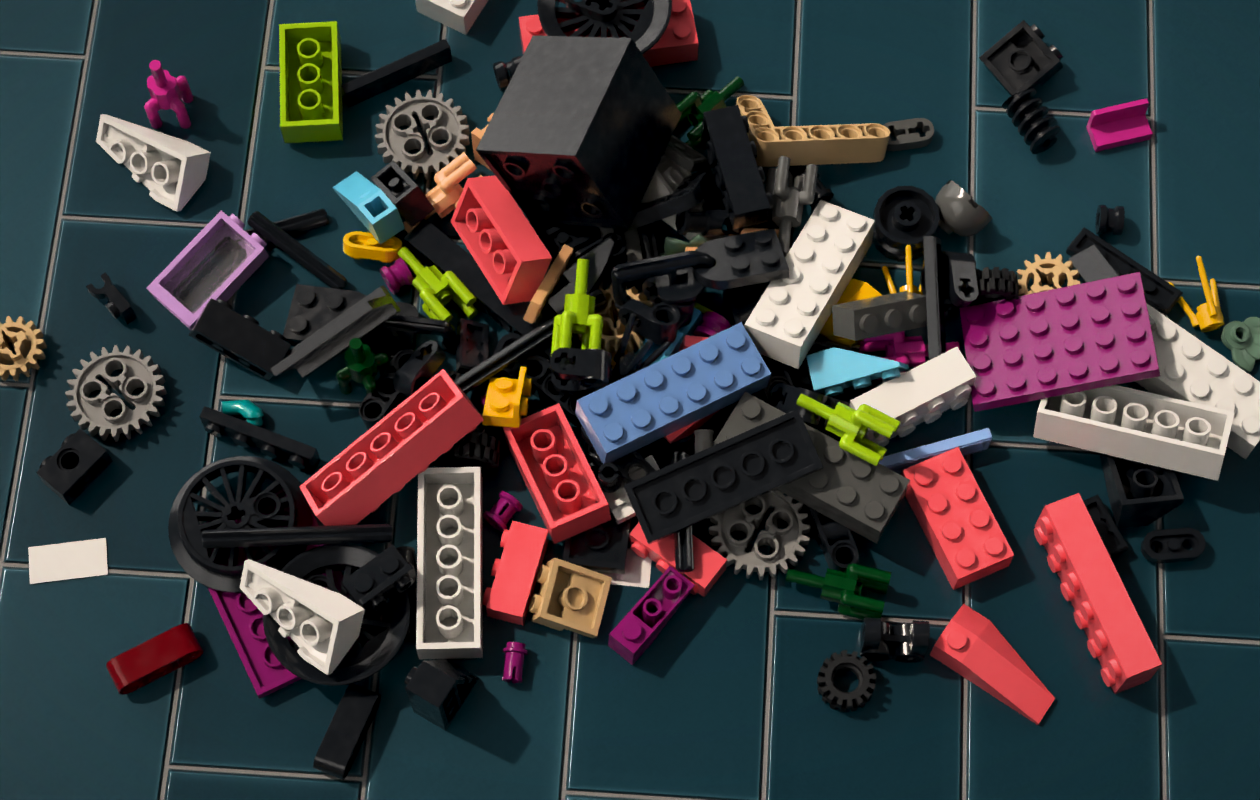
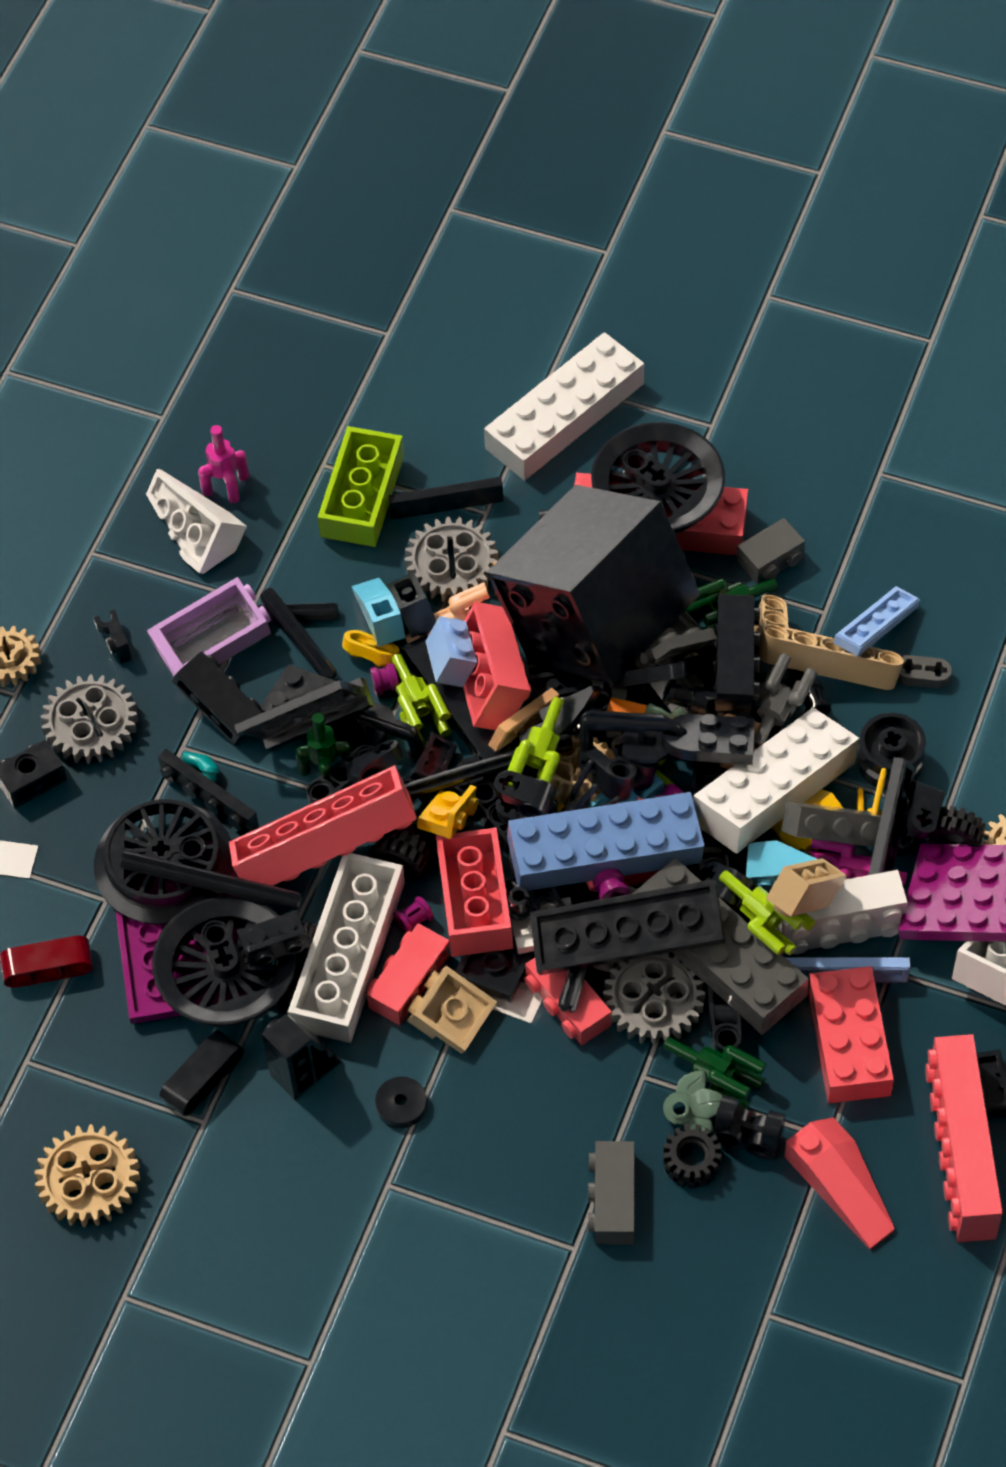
camera: 20 degrees right, 10 degrees down
(314, 617) = (199, 952): white wedge -> none
(457, 233) = (451, 651): none -> light blue brick
(514, 661) = (379, 1052): magenta pin -> none
(554, 718) = (401, 1115): none -> black piece
(644, 249) = (620, 705): none -> orange piece
(649, 615) = (519, 1045): magenta slope -> none
(678, 174) = (678, 646): none -> dark grey plate
(691, 436) = (610, 884): none -> magenta wheel
(727, 50) = (771, 551): none -> dark grey brick
(784, 740) = (612, 1192): none -> dark grey brick
(836, 626) = (698, 1102): none -> sand green plate
(851, 96) = (876, 621): none -> light blue tile
(887, 394) = (805, 887): none -> tan brick
(960, 212) = (948, 753): dark grey cylinder -> none

